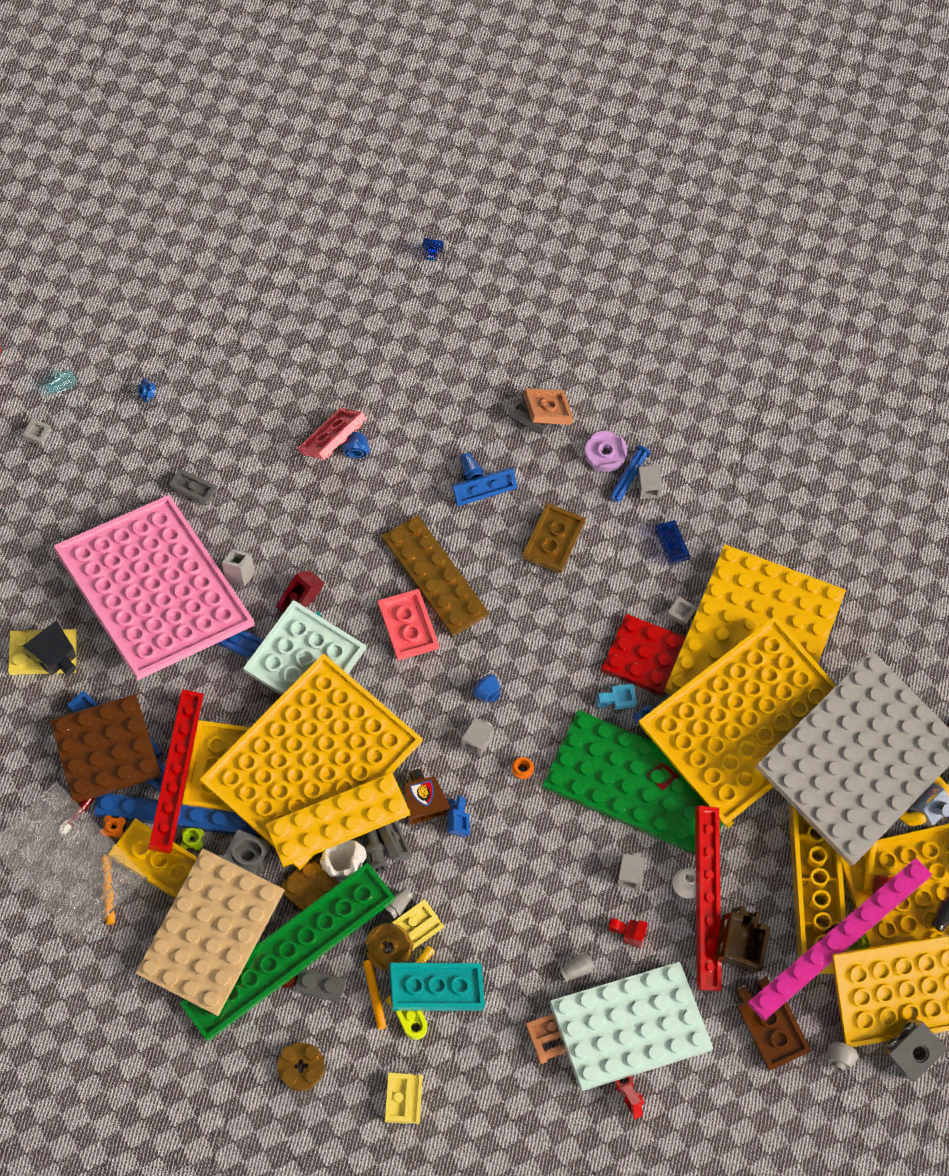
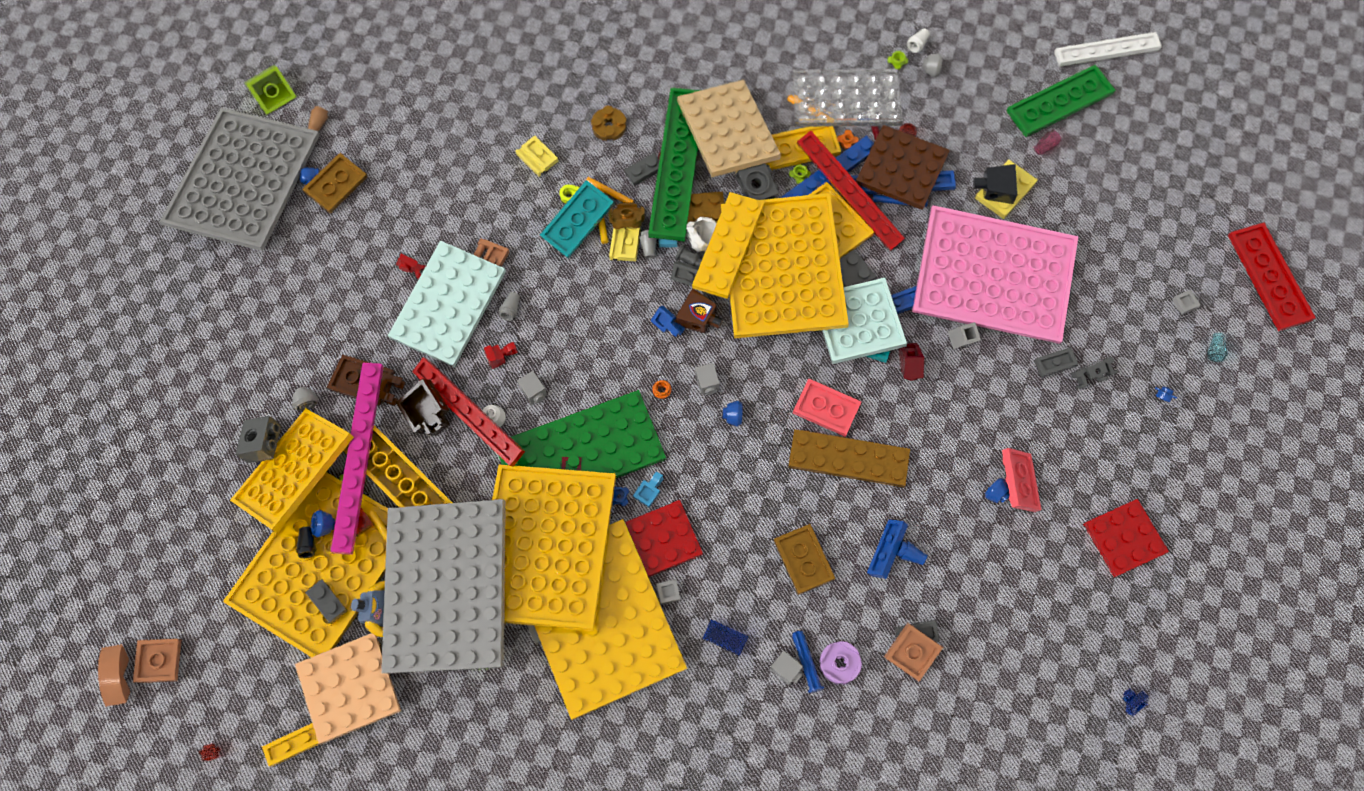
camera: 140 degrees right, 5 degrees up
(52, 777) = (909, 129): none -> clear red plate
(175, 456) = (1103, 365): none -> dark grey piece
(252, 705) = (855, 270): none -> dark grey plate
(304, 338) = (1126, 538): none -> red plate
(919, 915) = (322, 523): none -> blue cone

